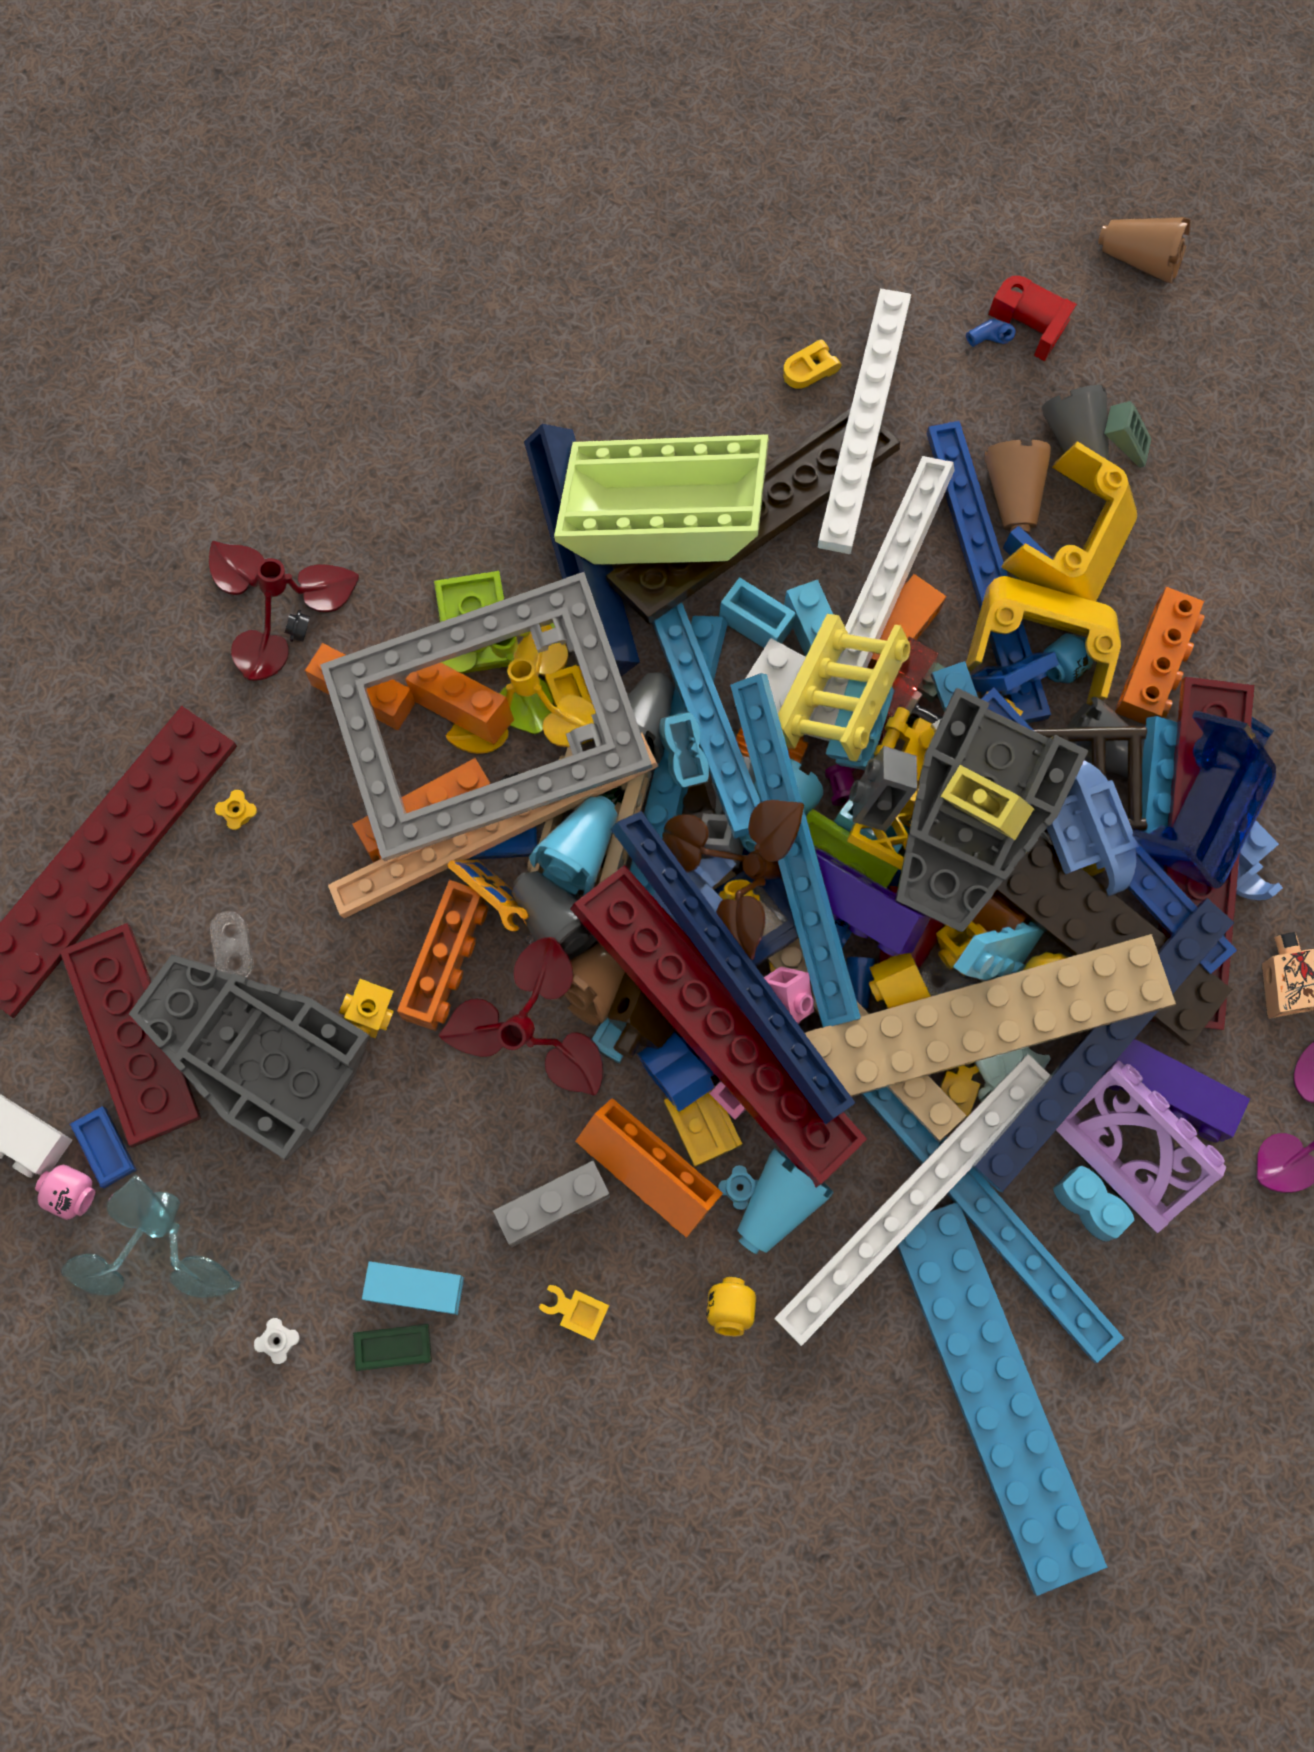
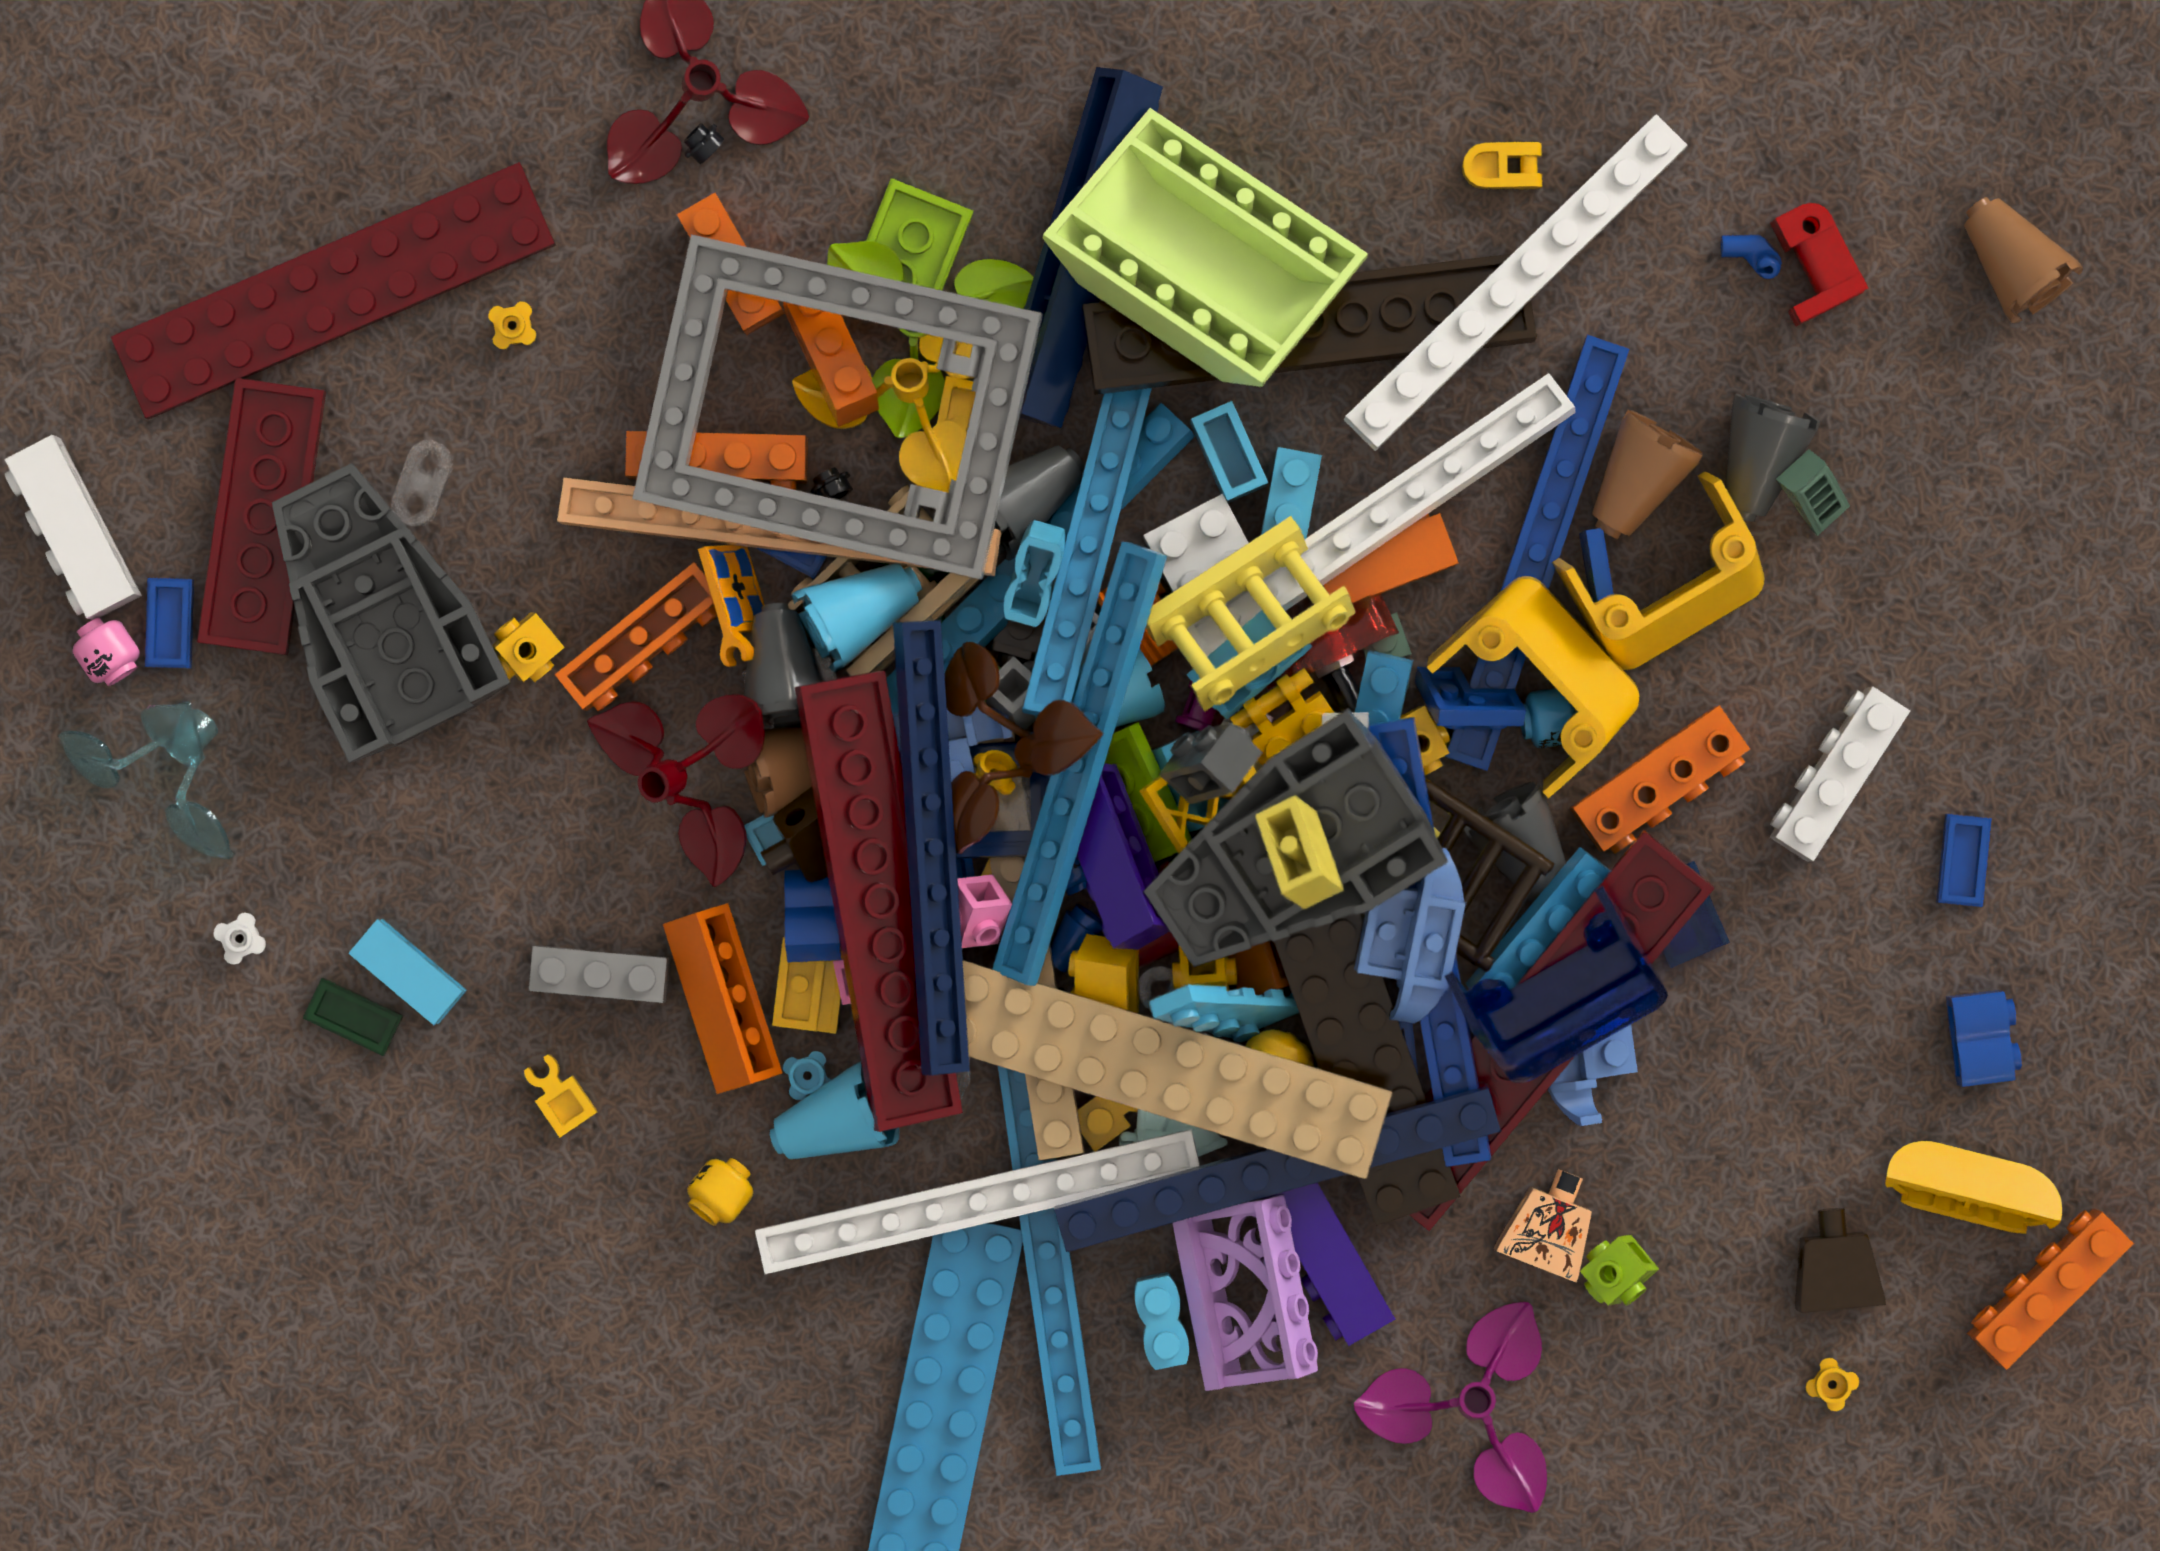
camera: 35 degrees right, 15 degrees up
(1265, 588) = (1839, 773): none -> white brick

